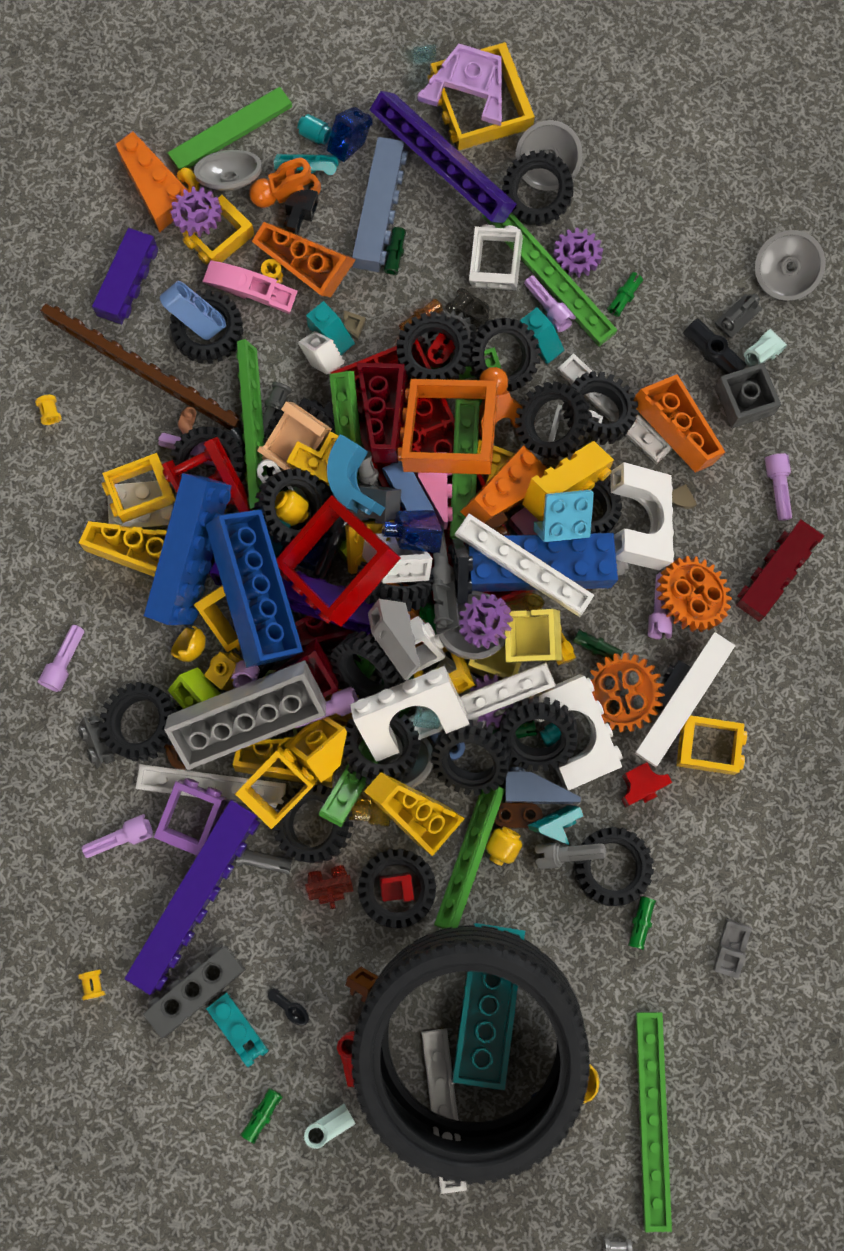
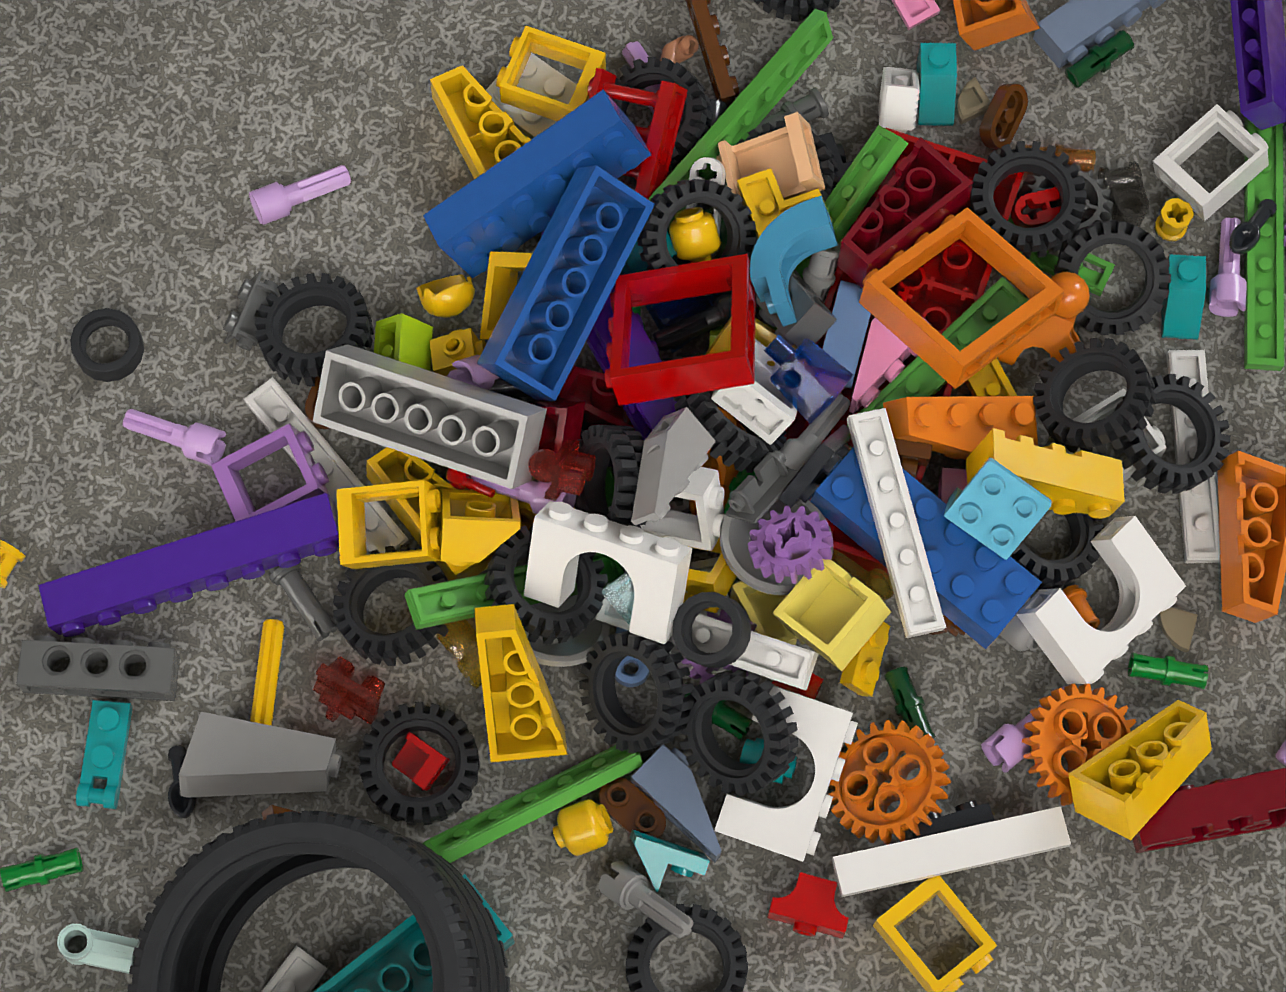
camera: 45 degrees right, 5 degrees down
(22, 813) = (110, 371): none -> black tyre
(280, 914) = (267, 672): none -> yellow axle
(292, 732) = (461, 481): none -> red hand
(316, 962) = (255, 758): none -> light grey slope
(342, 681) = (565, 469): none -> clear red hips
(376, 318) = (1003, 116): none -> reddish brown plate
(471, 710) = (683, 630): none -> black tyre
(499, 297) = (1167, 227): none -> yellow bush
(544, 278) = (1247, 234): none -> black piece
(629, 525) = (1077, 597): none -> orange pin
(696, 523) = (1167, 670): none -> green pin
(734, 582) = (1141, 770): none -> yellow wedge

